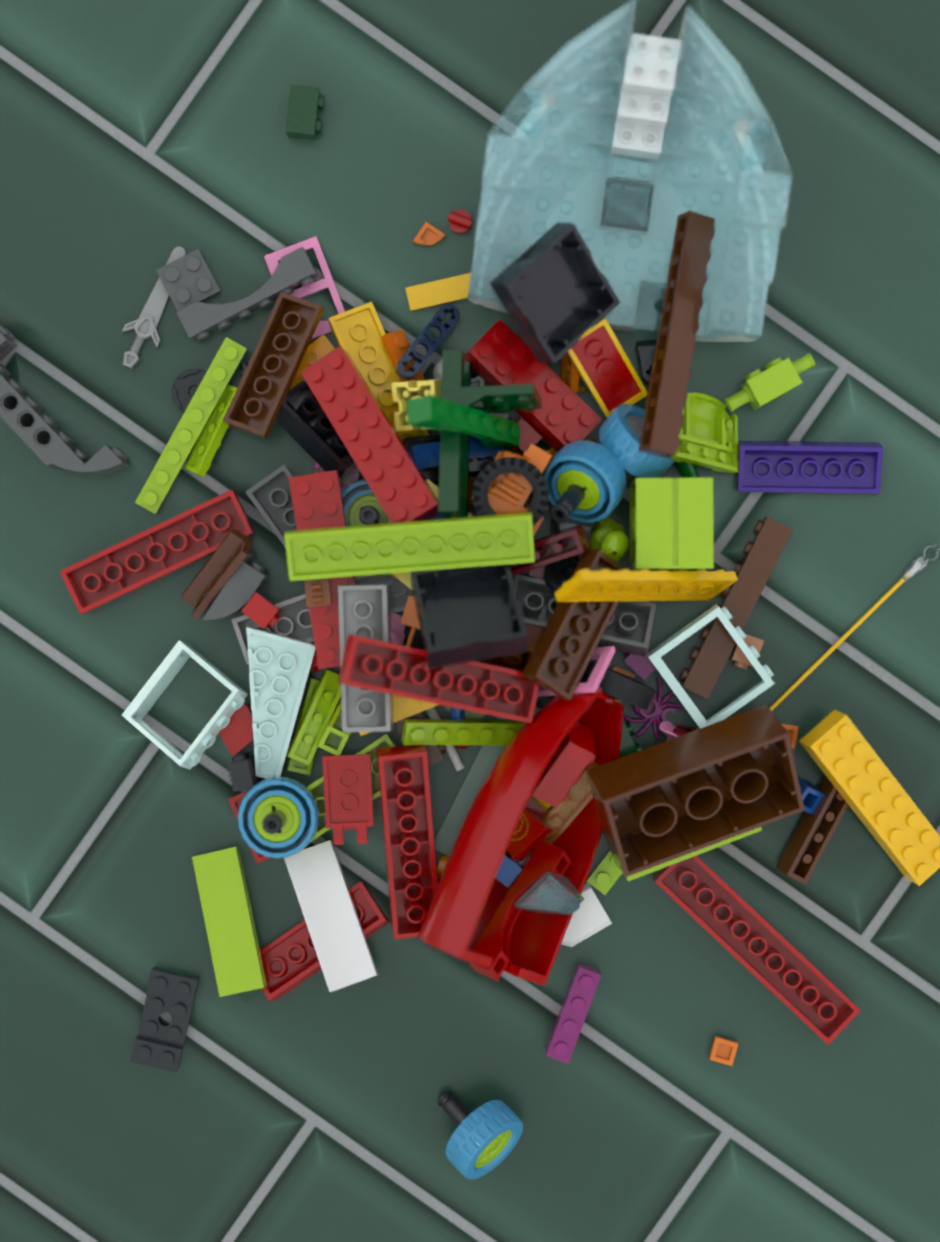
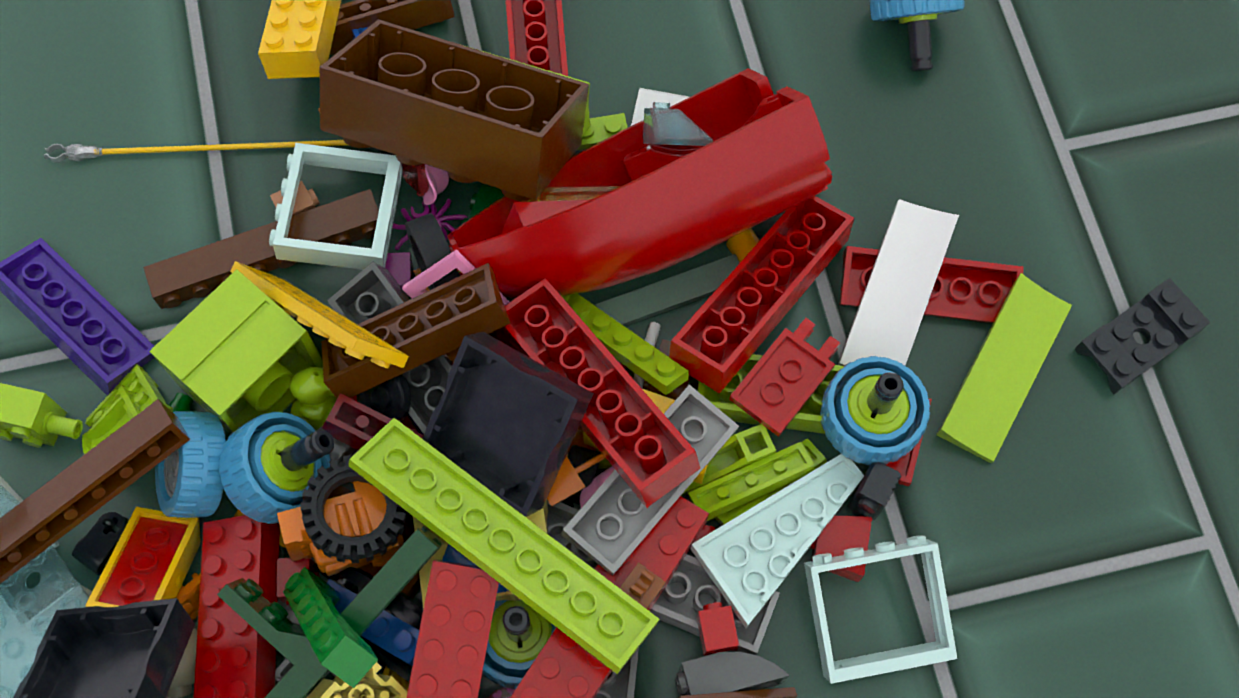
camera: 140 degrees left, 20 degrees down
(573, 1012) = (742, 42): magenta brick -> none

